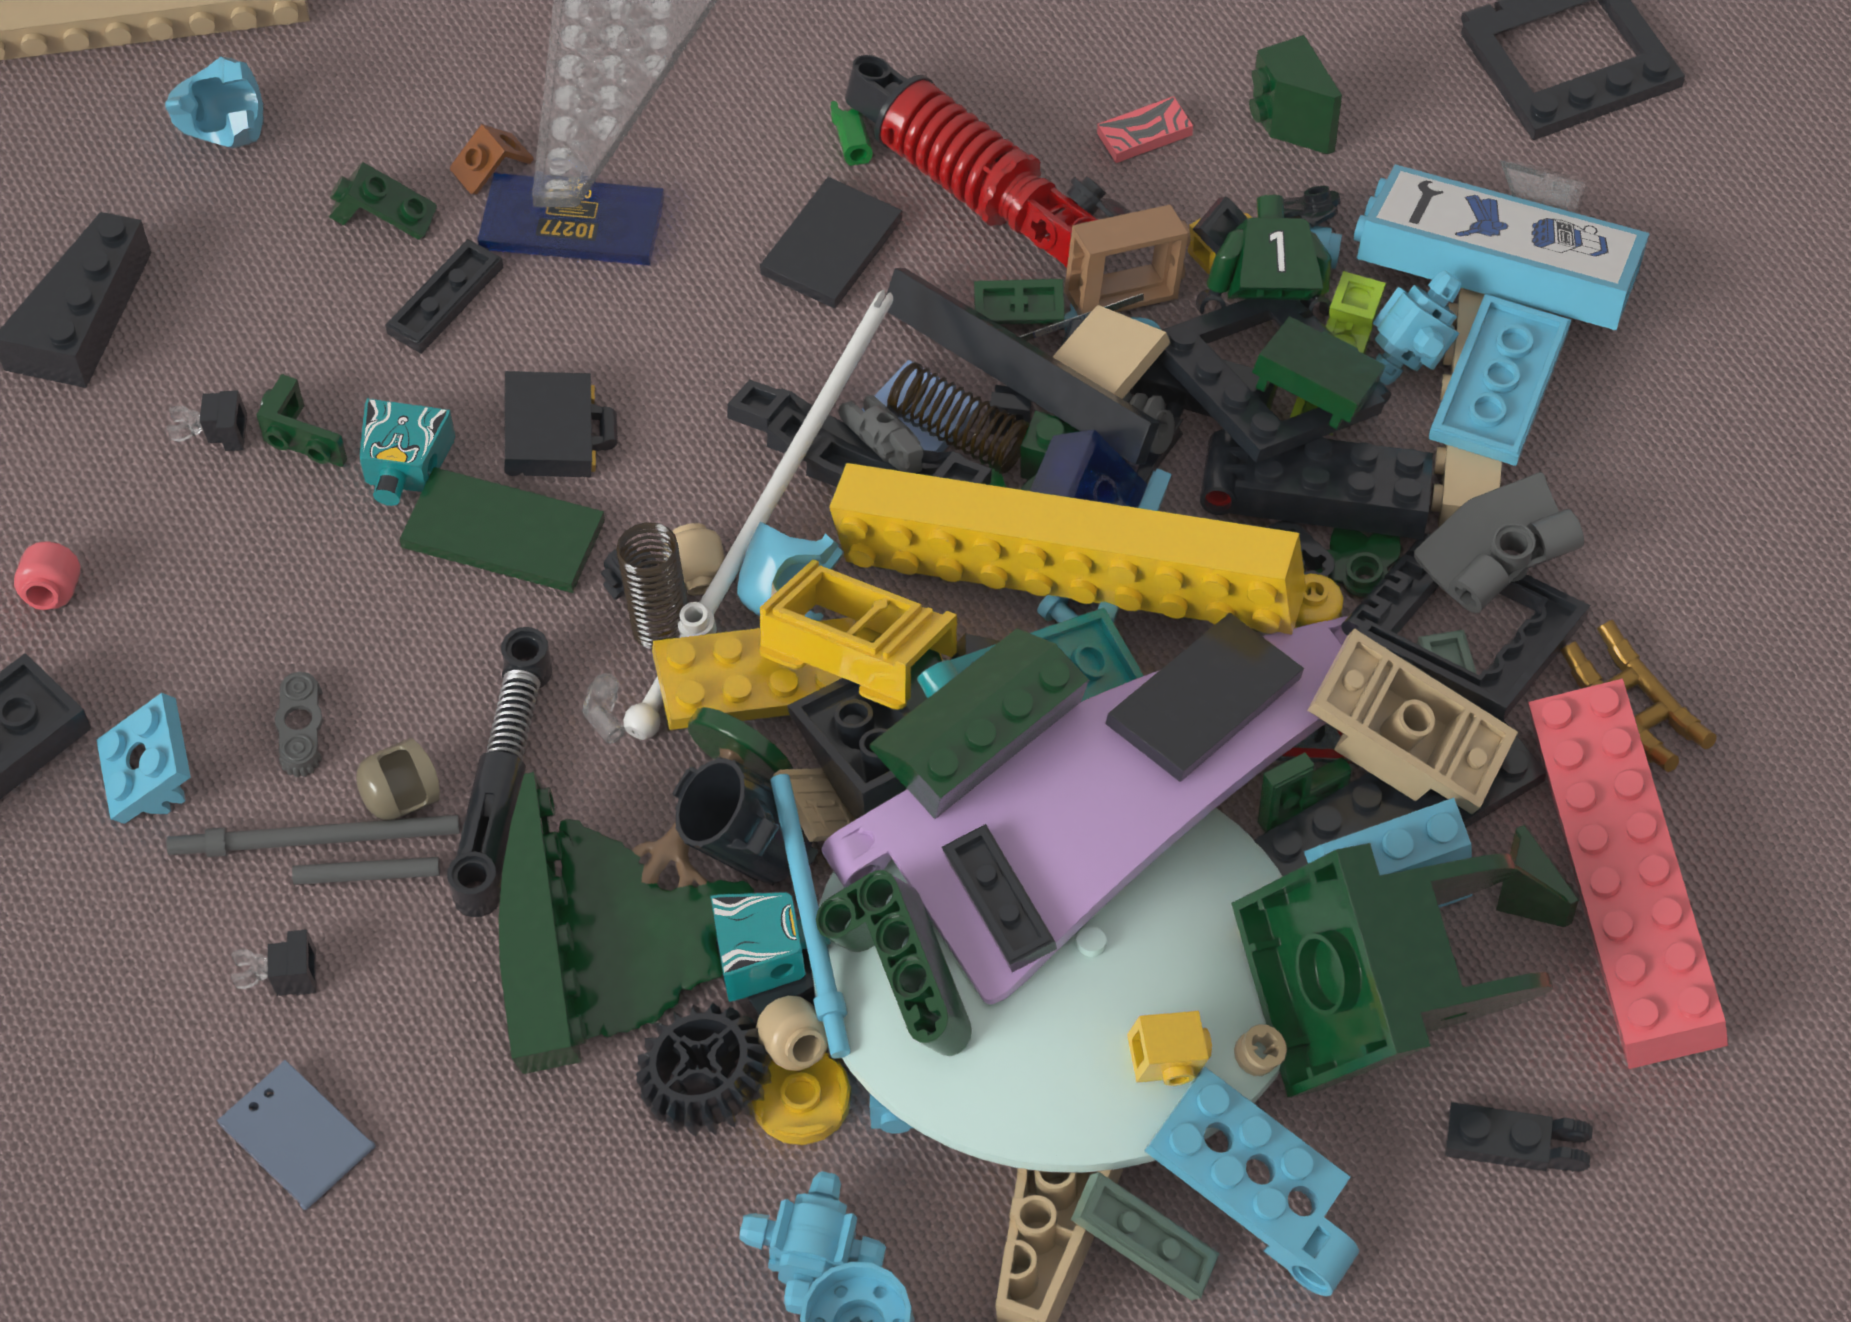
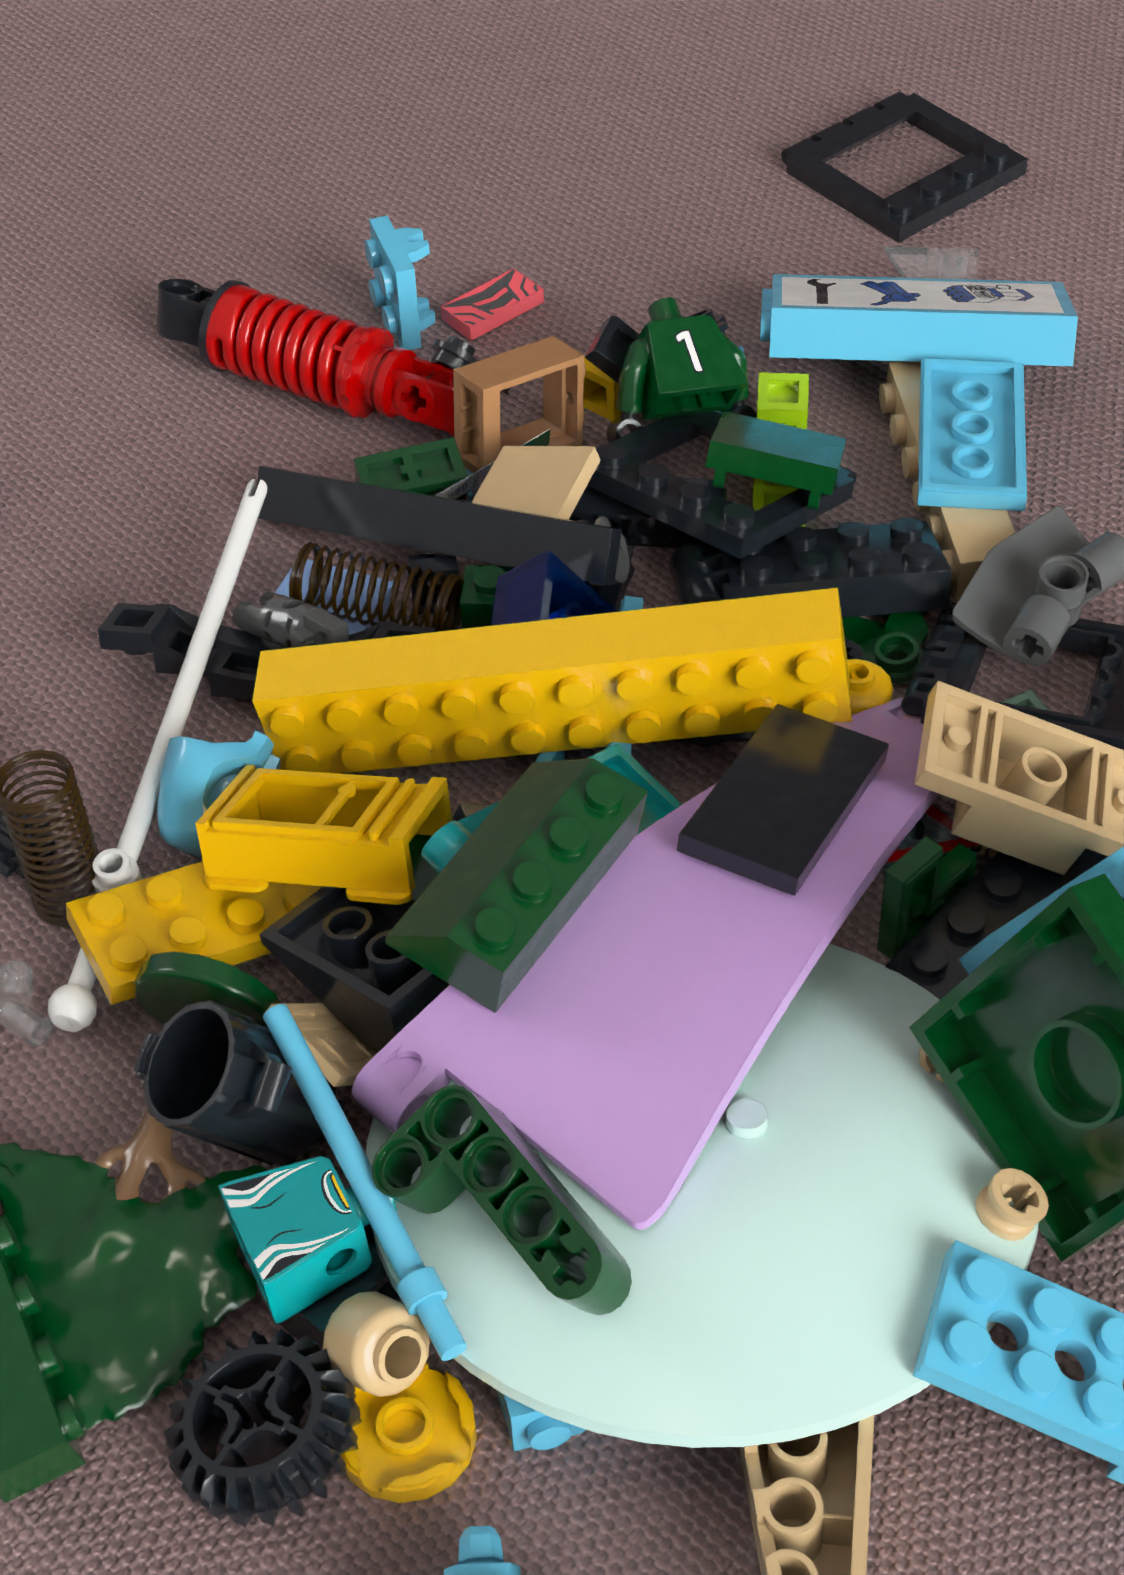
camera: 15 degrees left, 10 degrees down
(700, 556) = (106, 803): tan head -> none
(831, 242) = (177, 468): black tile -> none
(852, 135) = (174, 365): green bar -> none
(999, 898) = (614, 1088): black tile -> none
(1064, 75) = (394, 286): none -> medium azure piece
(1145, 1236) = (947, 1497): sand green tile -> none
(1169, 1047) = (902, 1225): yellow brick -> none
(1296, 96) = (647, 235): dark green slope -> none
(1417, 326) = (861, 401): medium azure piece -> none

